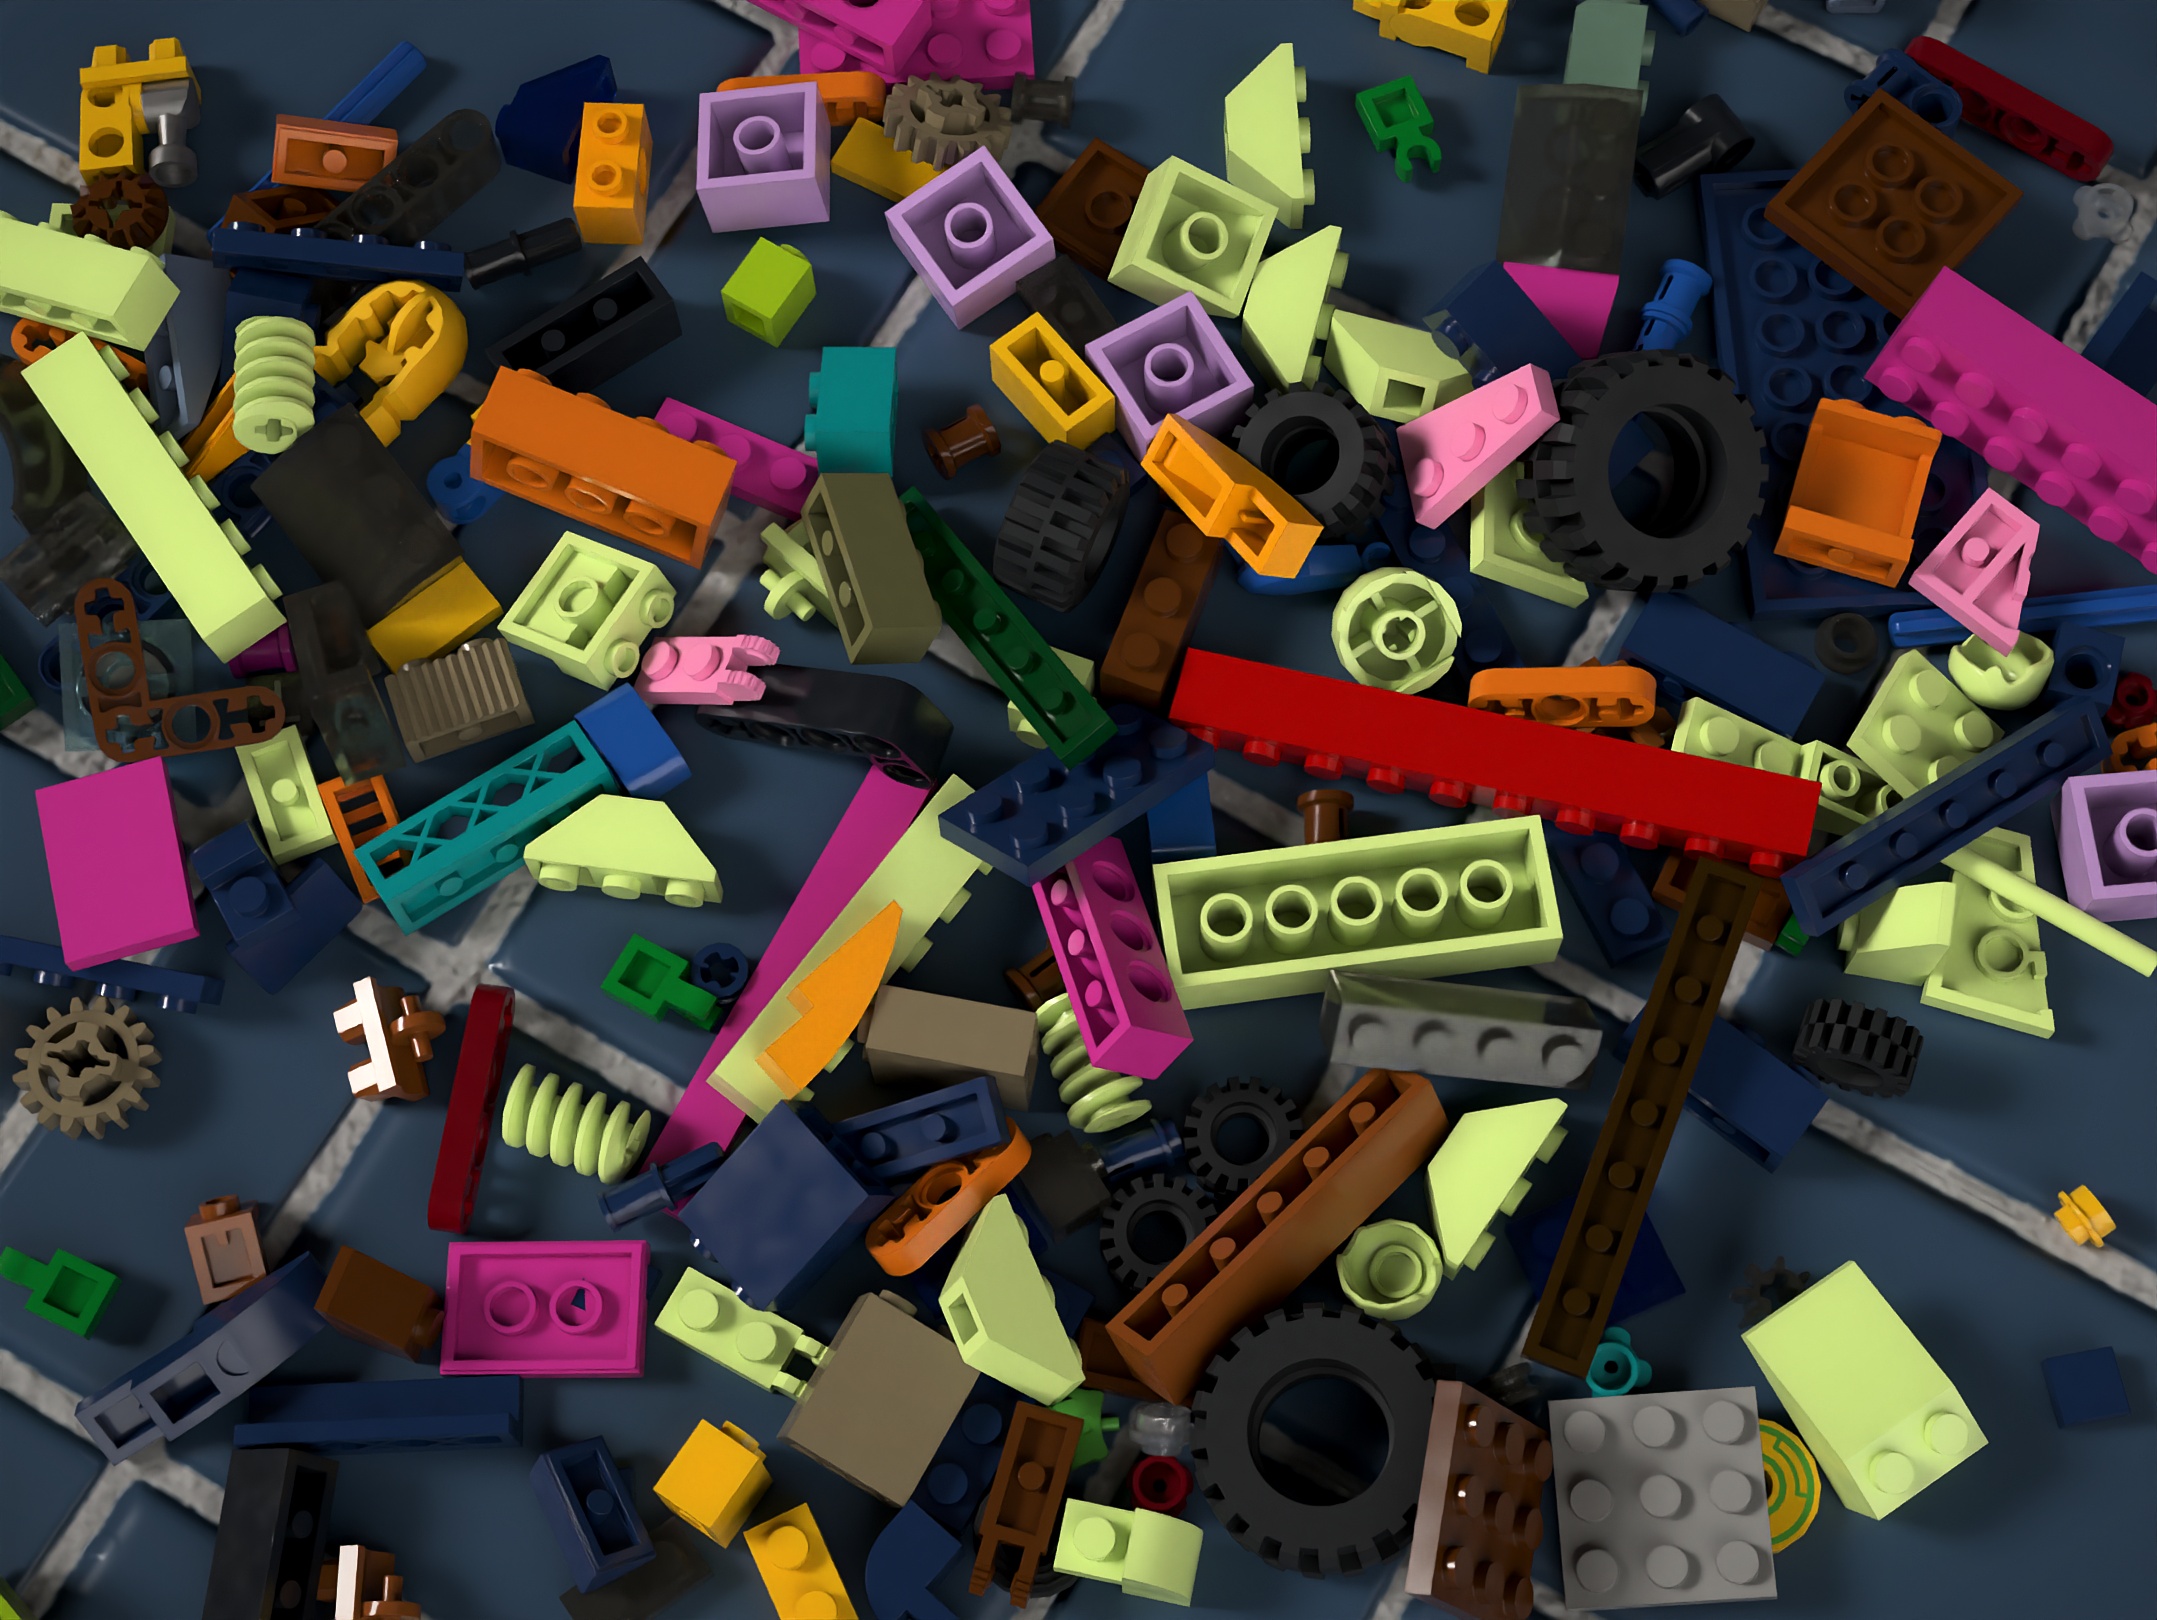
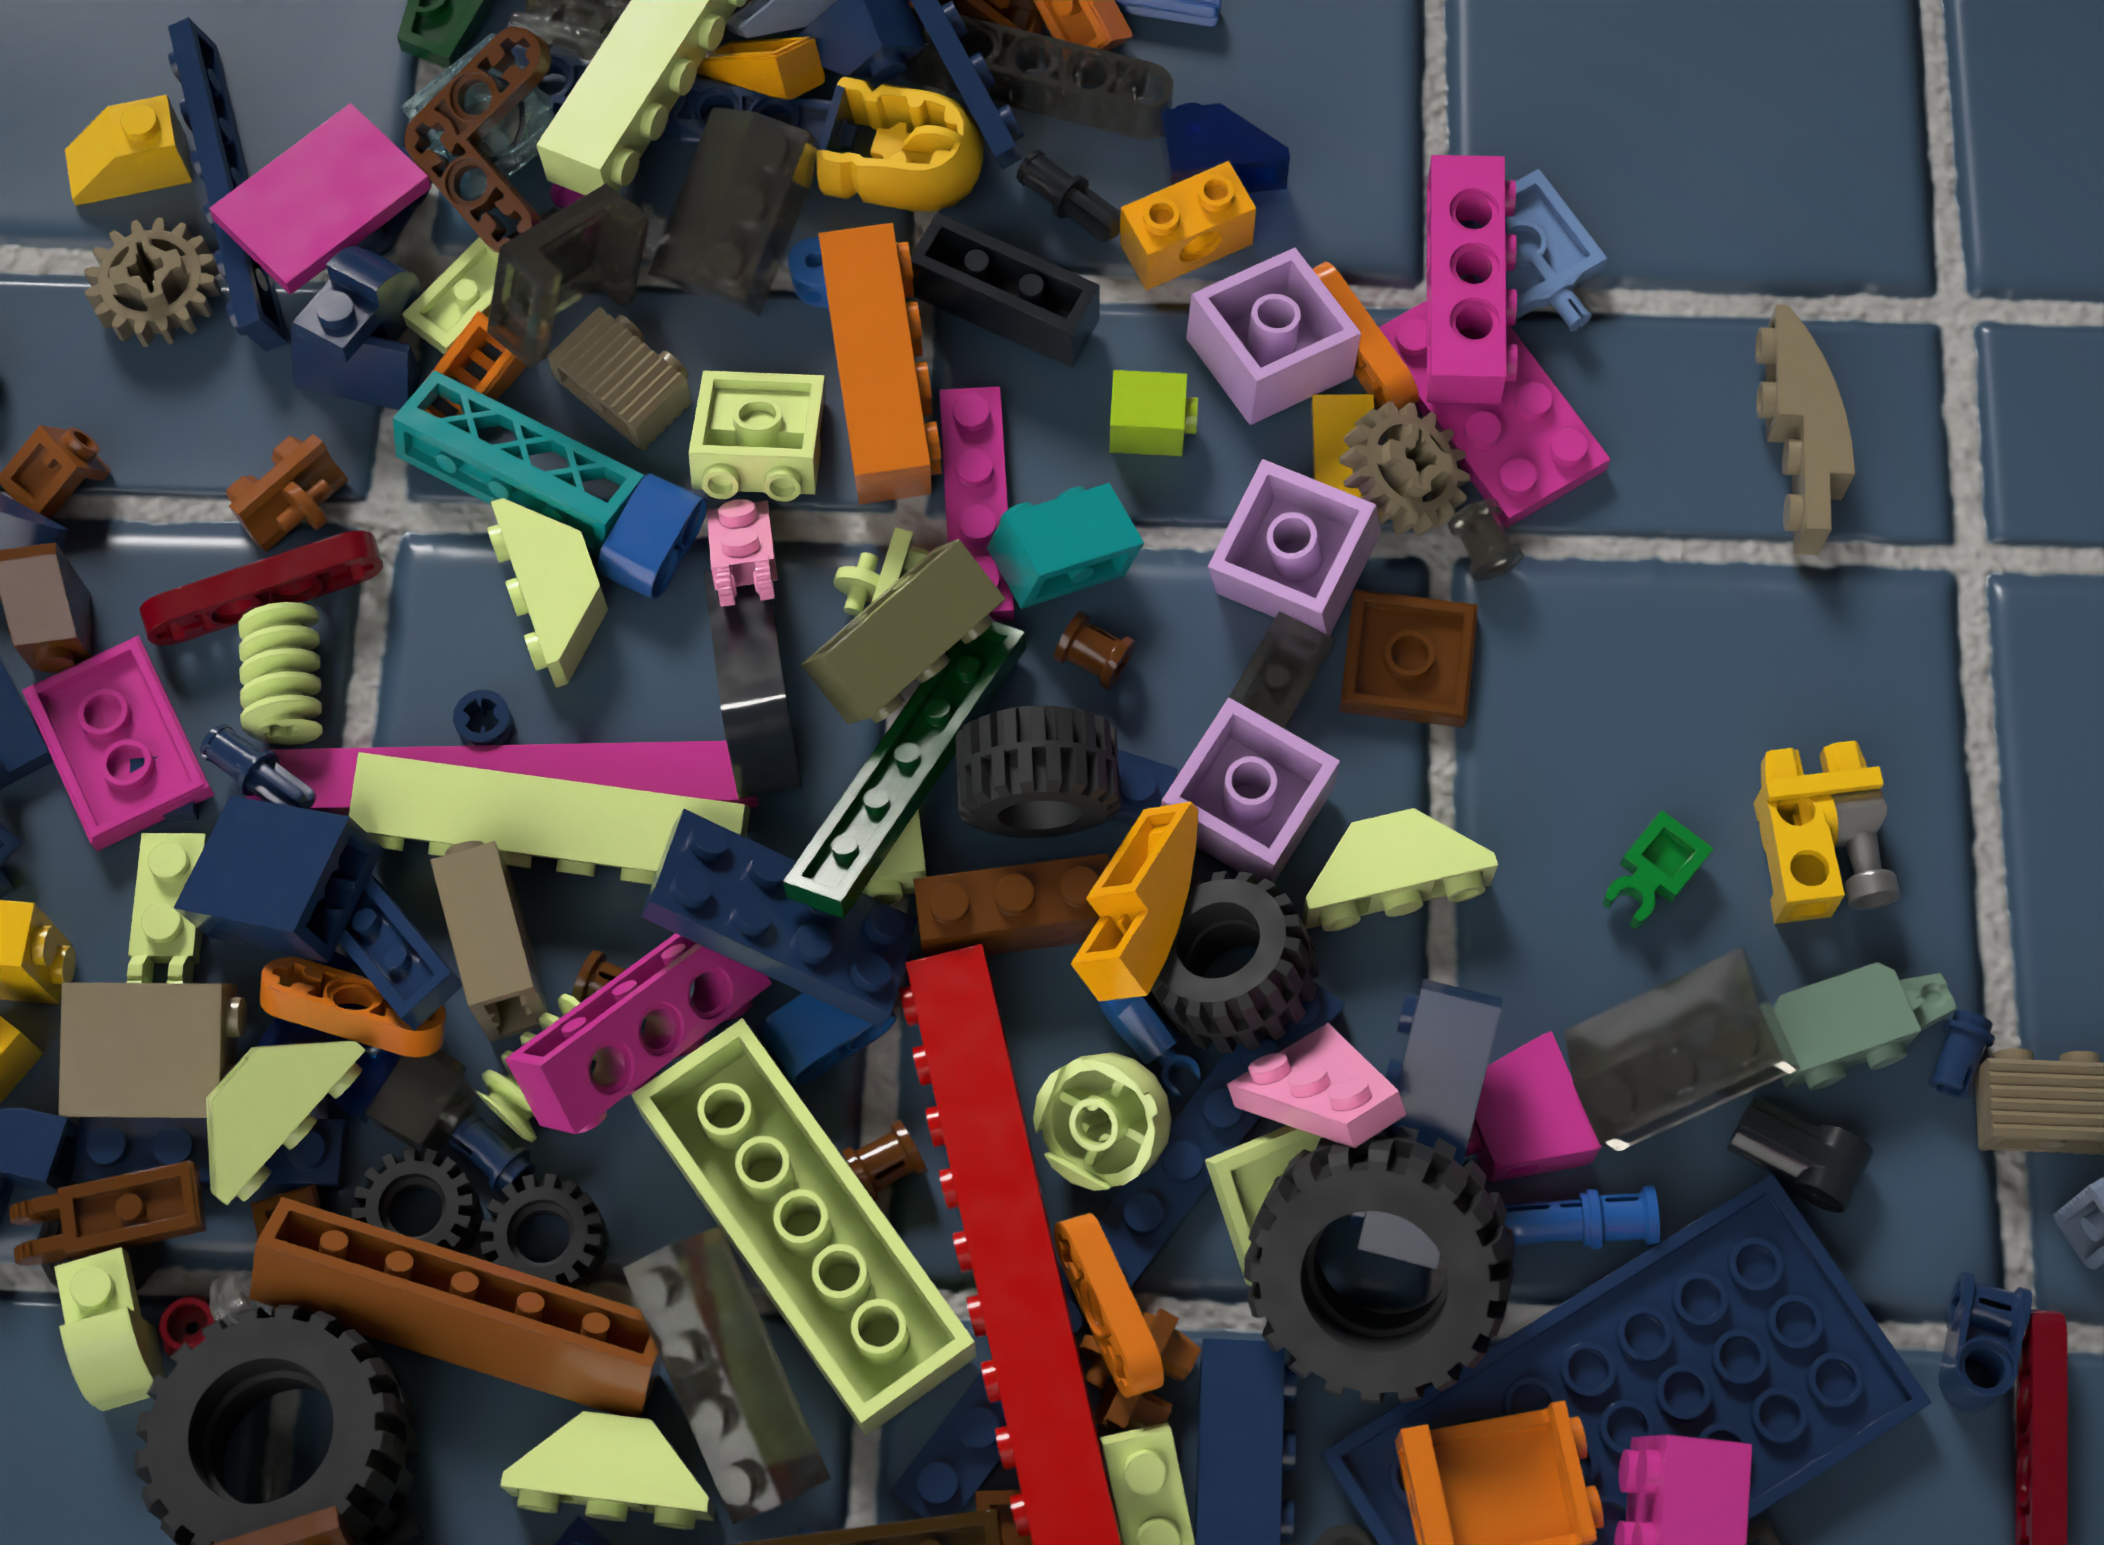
camera: 60 degrees right, 0 degrees up
(273, 382) = (793, 63): yellowish green piece -> none
(435, 619) = (689, 321): yellow tile -> none
(654, 980) = (442, 669): green plate -> none
(831, 1004) = (461, 812): light orange slope -> none
(1051, 384) = (1184, 693): yellow brick -> none
(1088, 1406) = (221, 1238): bright green piece -> none
(1193, 237) = (1402, 742): yellowish green slope -> none
(1268, 137) = (1571, 752): yellowish green slope -> none
(1390, 1269) = (476, 1427): yellowish green hair -> none
(1392, 367) = (1374, 983): yellowish green slope -> none
(1892, 203) = (1845, 1376): reddish brown plate -> none

